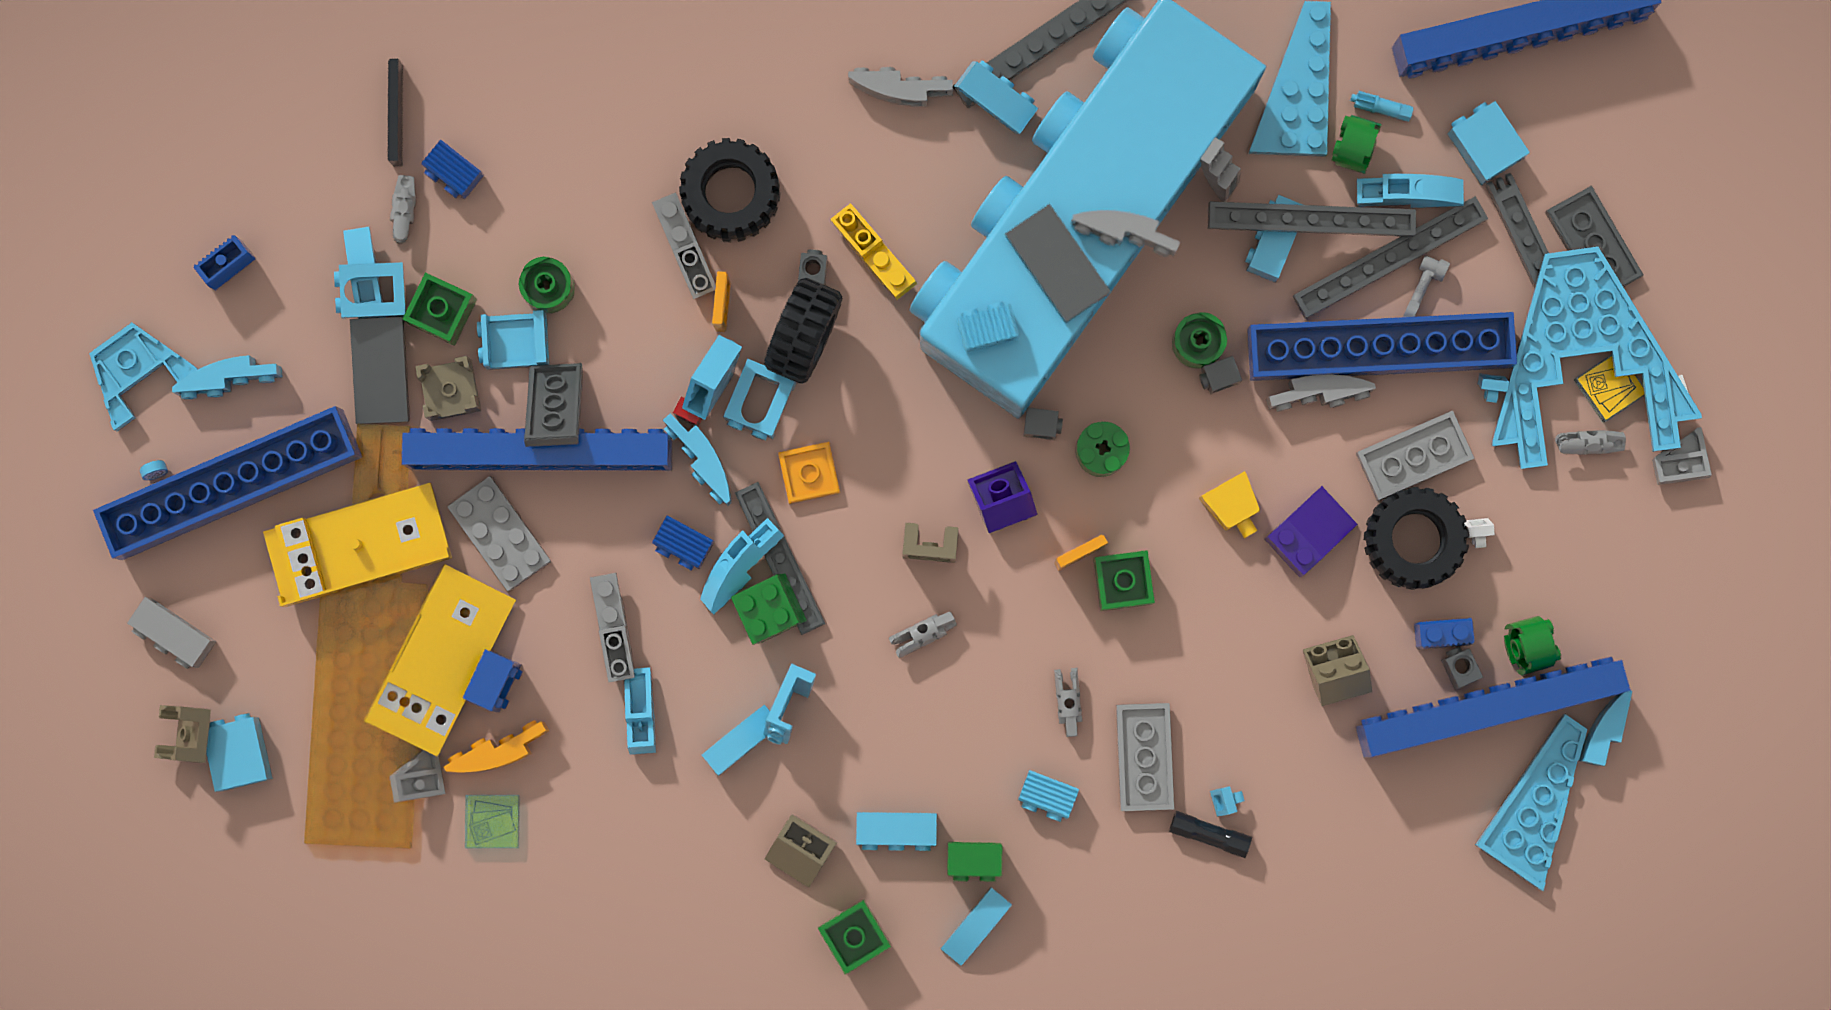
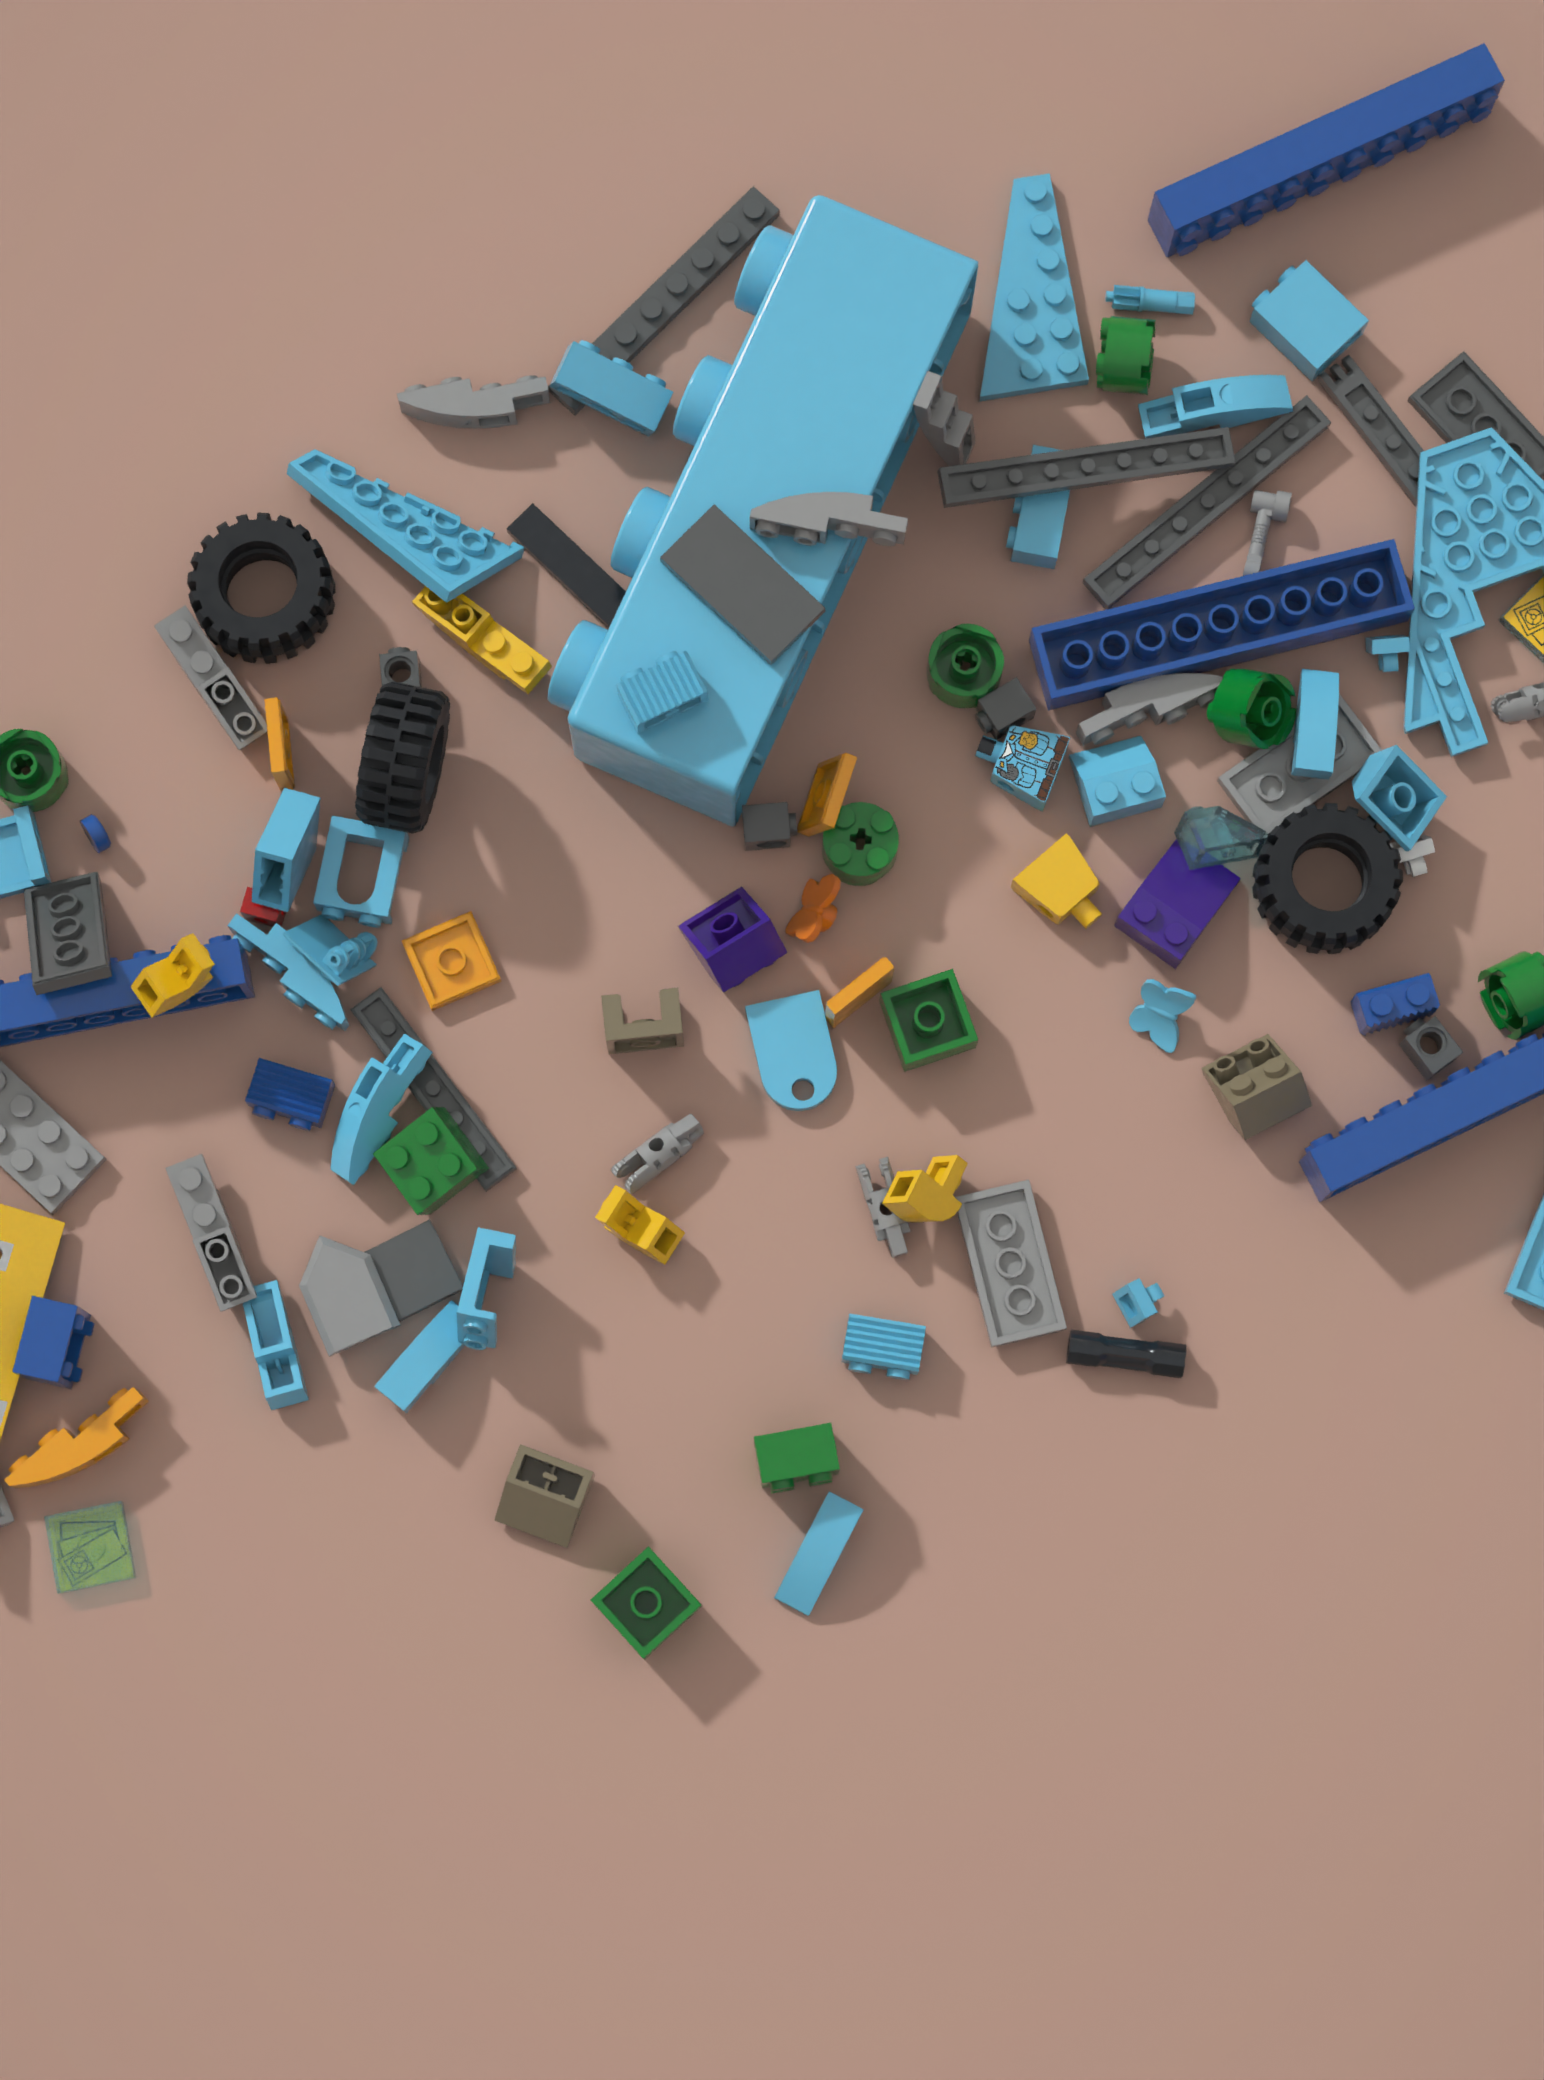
camera: 15 degrees left, 5 degrees down
(585, 337) = (95, 833): none -> blue tile
(620, 453) = (175, 977): none -> yellow brick
(694, 688) = (345, 1296): none -> light grey tile
(730, 451) = (332, 950): none -> medium azure hinge
(734, 682) = (415, 1270): none -> dark grey tile
(839, 169) = (407, 529): none -> medium azure wing
(896, 830) = (676, 1439): medium azure brick -> none
(900, 681) = (639, 1225): none -> yellow brick
(943, 214) = (568, 563): none -> black tile
(1028, 578) = (793, 1047): none -> medium azure tile
(1063, 490) = (817, 911): none -> orange animal
(1086, 411) = (826, 794): none -> light orange tile
(1099, 700) = (929, 1194): none -> yellow brick
(1227, 415) = (1025, 762): none -> torso
(1282, 607) = (1160, 1013): none -> medium azure animal
(1287, 439) = (1117, 780): none -> medium azure slope
(1347, 493) = (1217, 837): none -> clear light blue slope
(1390, 410) = (1253, 708): none -> green brick
(1431, 429) = (1316, 724): none -> medium azure slope
(1476, 491) = (1397, 795): none -> medium azure slope

